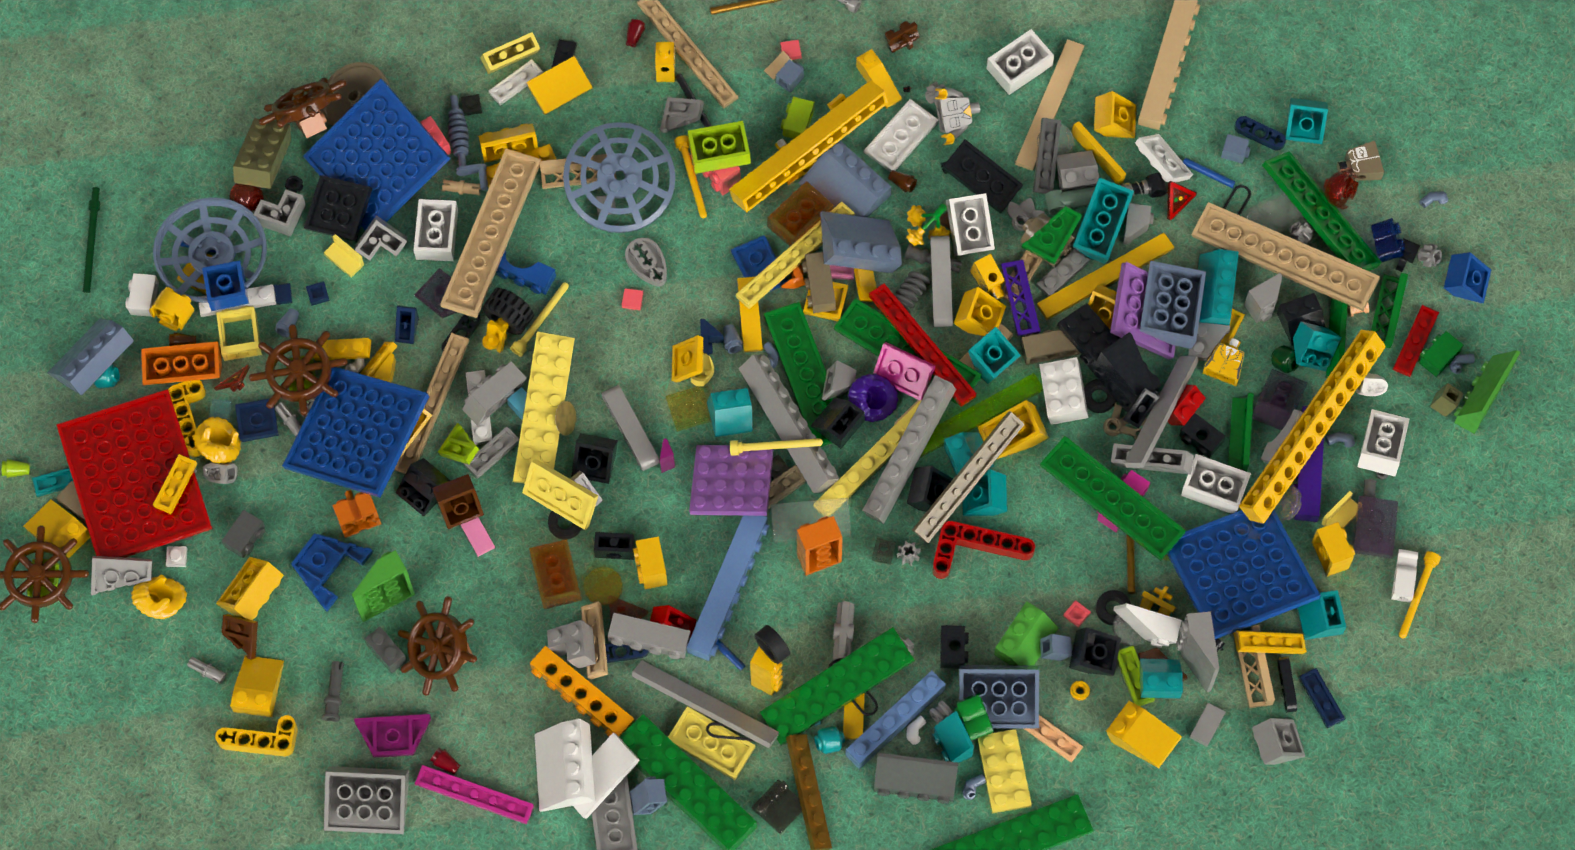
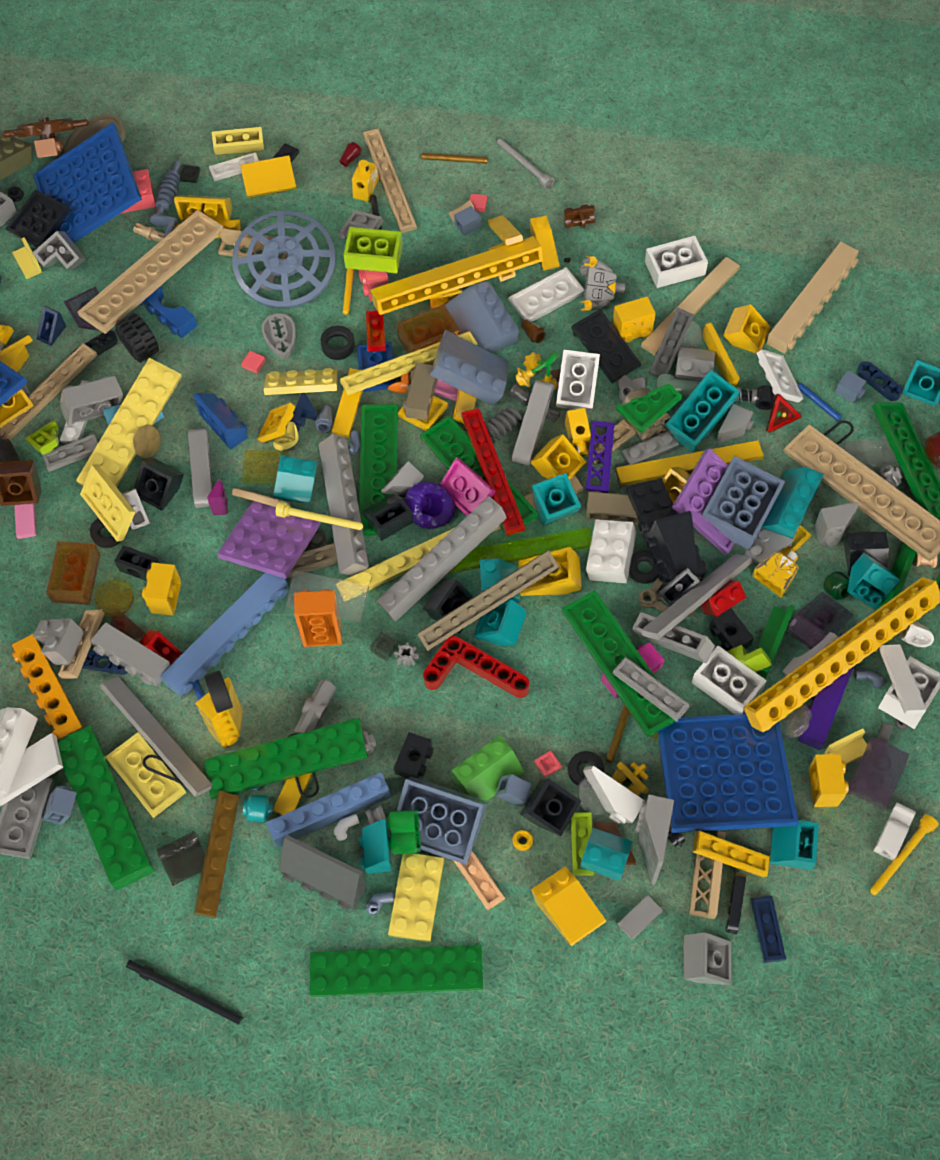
camera: 20 degrees right, 5 degrees down
(436, 230) = (110, 257): white brick -> none
(495, 335) = (118, 355): yellow hips -> none
(519, 346) = (135, 371): light yellow piece -> none
(629, 372) = (220, 419): none -> blue slope
(693, 307) = (301, 381): none -> light yellow plate
(710, 239) = (341, 353): none -> black tyre
(721, 441) = (257, 497): none -> tan tile
(745, 229) = (375, 331): none -> red plate
(798, 117) = (460, 250): lime brick -> none
(835, 78) = (505, 230): none -> yellow tile
(1002, 140) = (634, 319): none -> yellow brick
(1150, 515) = (651, 689): none -> light grey tile
(1233, 458) = (754, 660): none -> lime slope
(1371, 434) = (902, 679): none -> white tile

